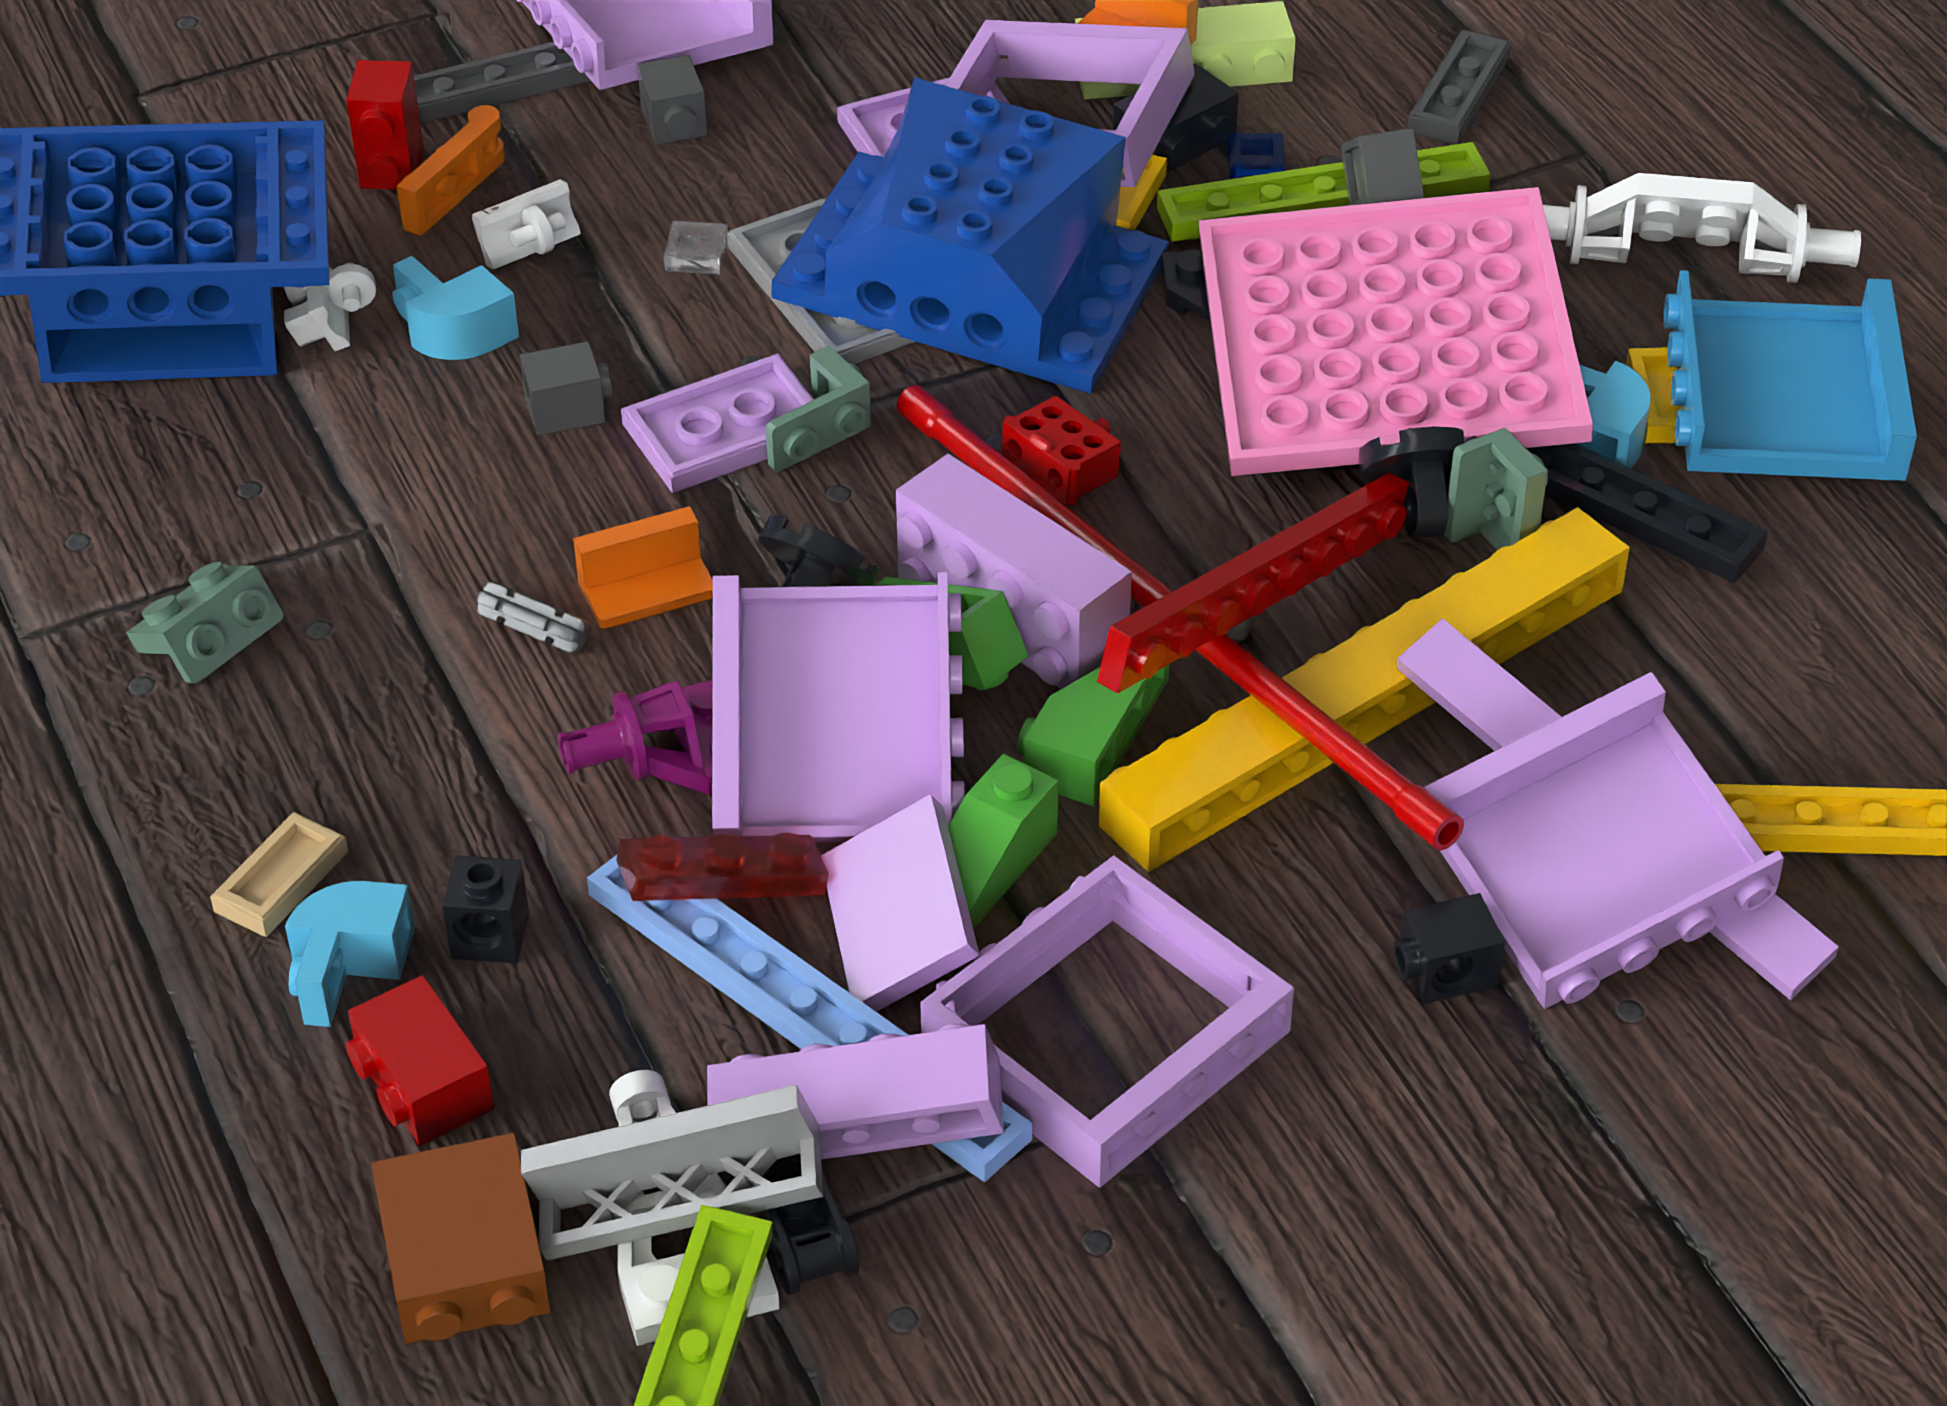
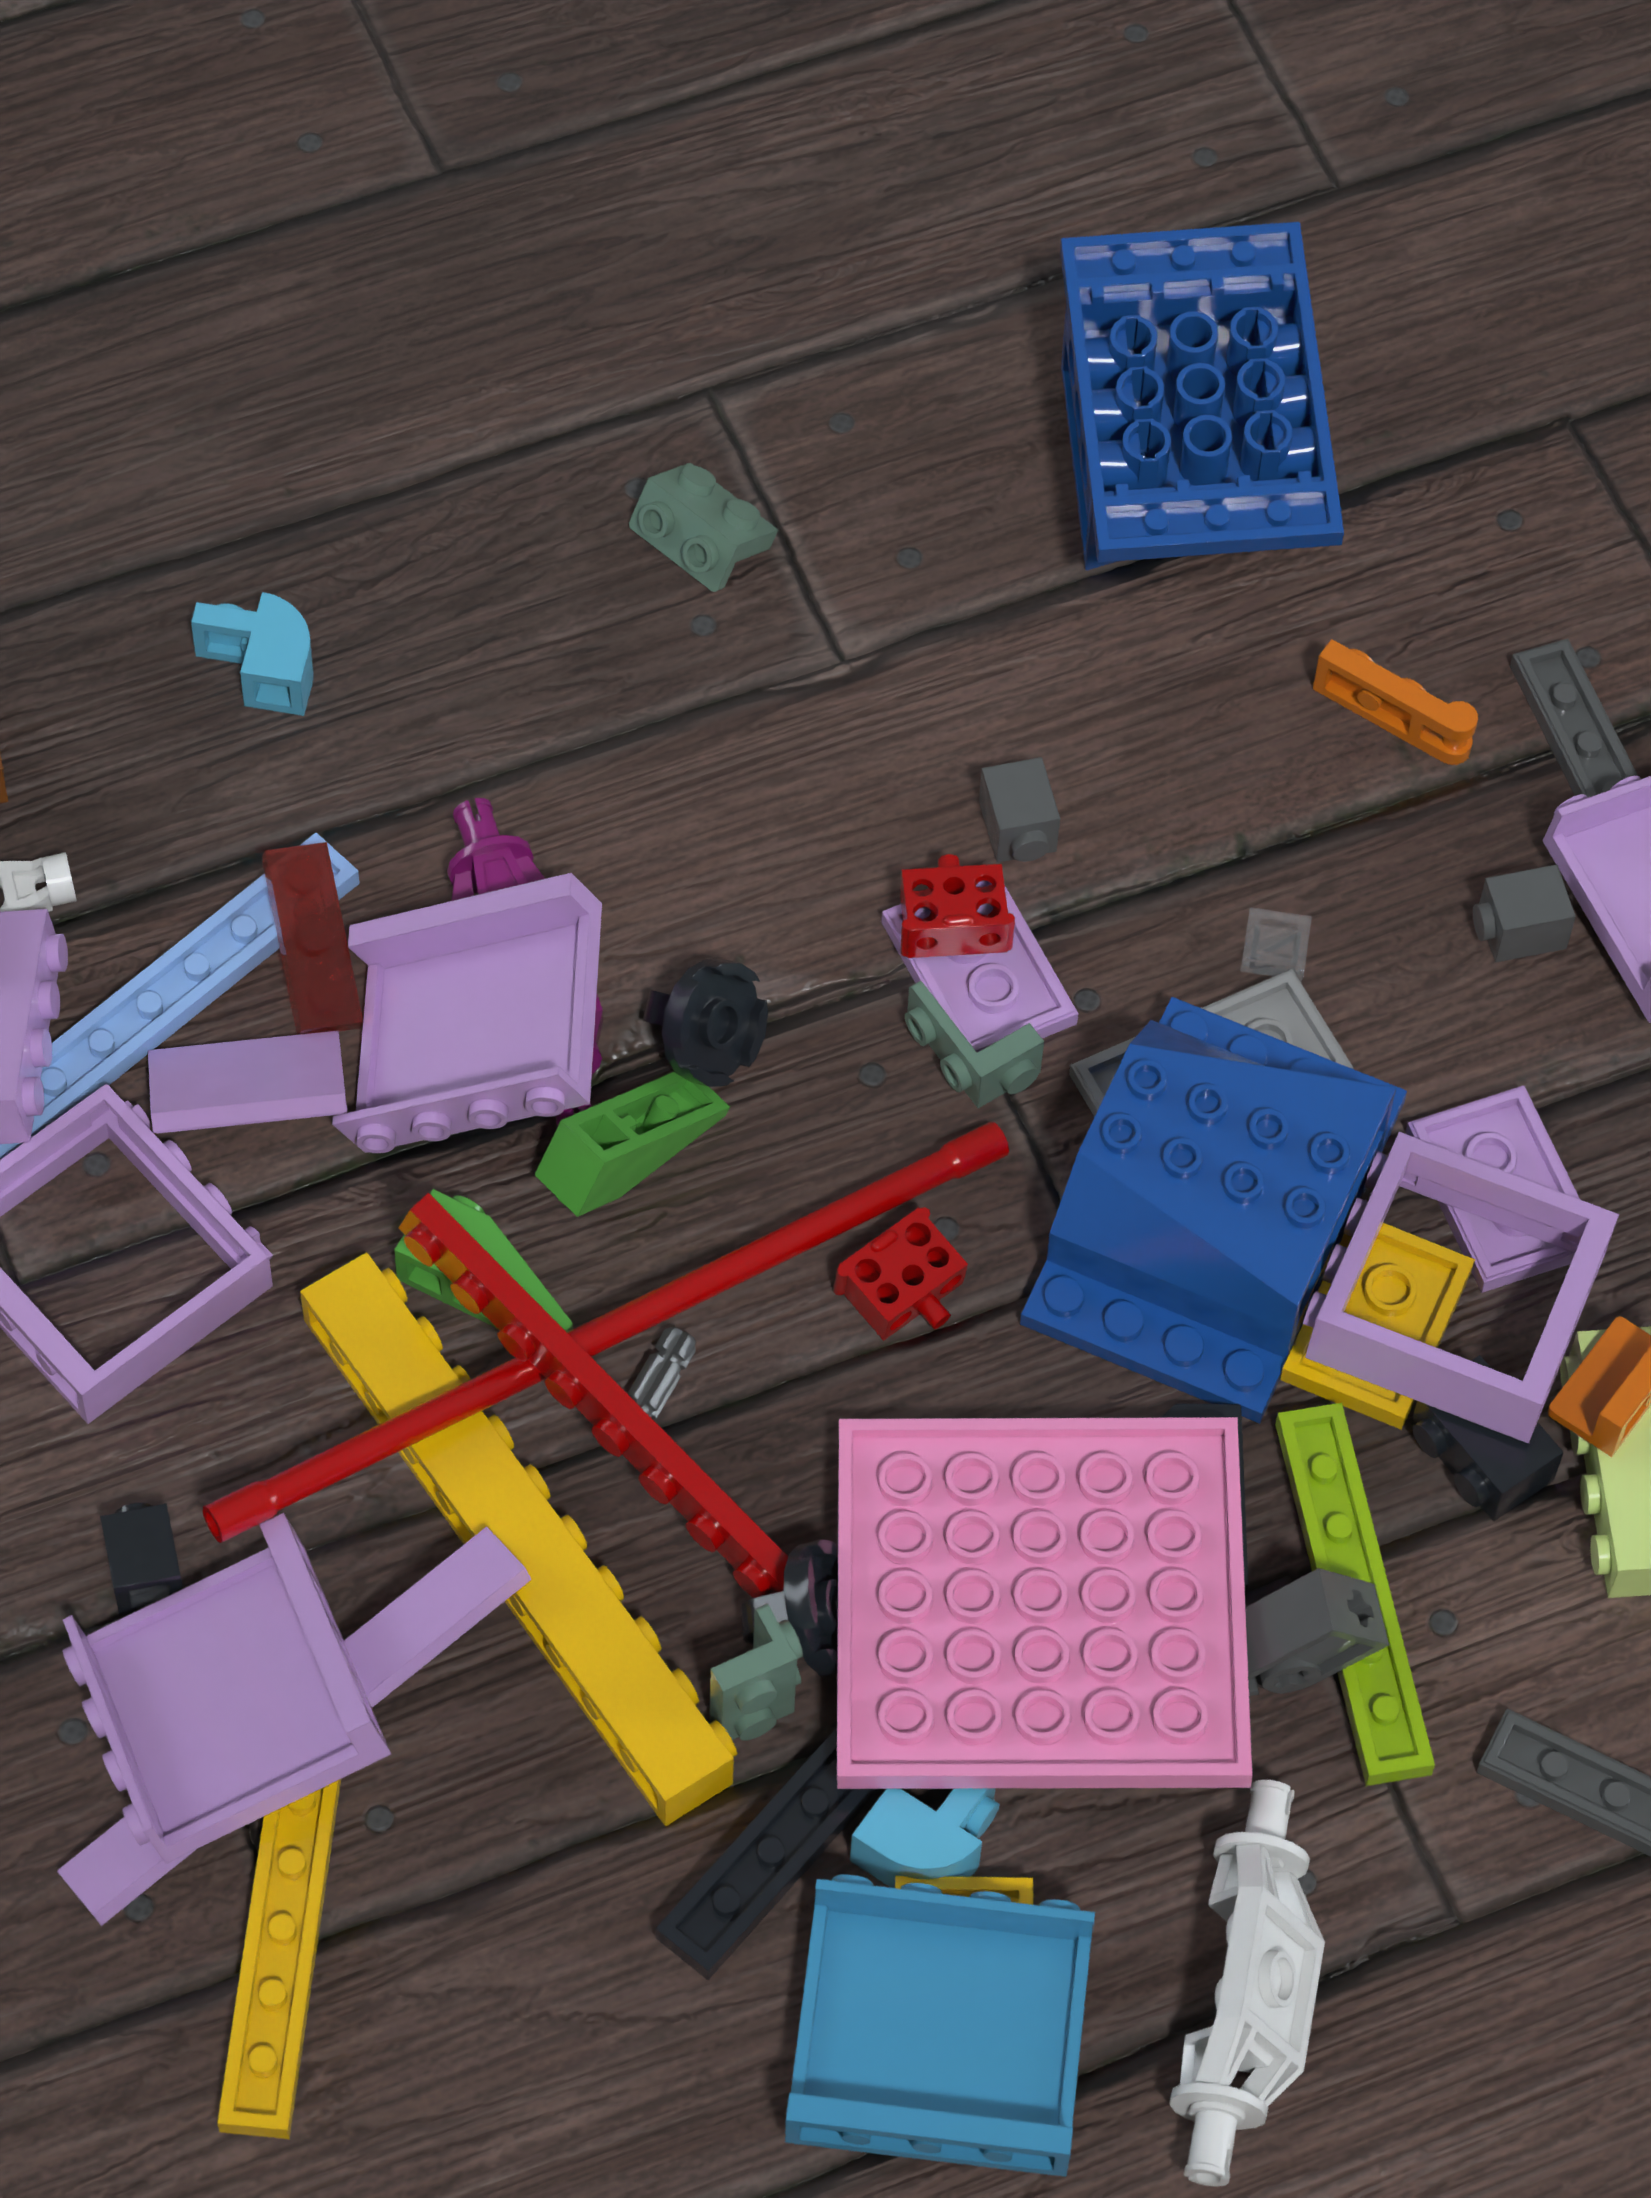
camera: 90 degrees right, 15 degrees up
(279, 874) = (373, 605): tan tile -> none
(324, 309) = (1177, 595): white hips -> none
(384, 123) = (1438, 623): red brick -> none
(419, 1060) = (120, 711): red brick -> none
(457, 316) = (1144, 711): medium azure brick -> none
(486, 909) = (286, 754): black brick -> none
(525, 224) = (1295, 774): white hips -> none
(533, 617) = (688, 794): axle -> none
(642, 568) = (742, 889): orange panel -> none
(682, 411) = (953, 900): none -> red piece
(988, 539) = (666, 1191): lavender brick -> none
(1002, 830) = (324, 1168): bright green slope -> none
(1255, 154) = (1438, 1533): clear blue tile -> none

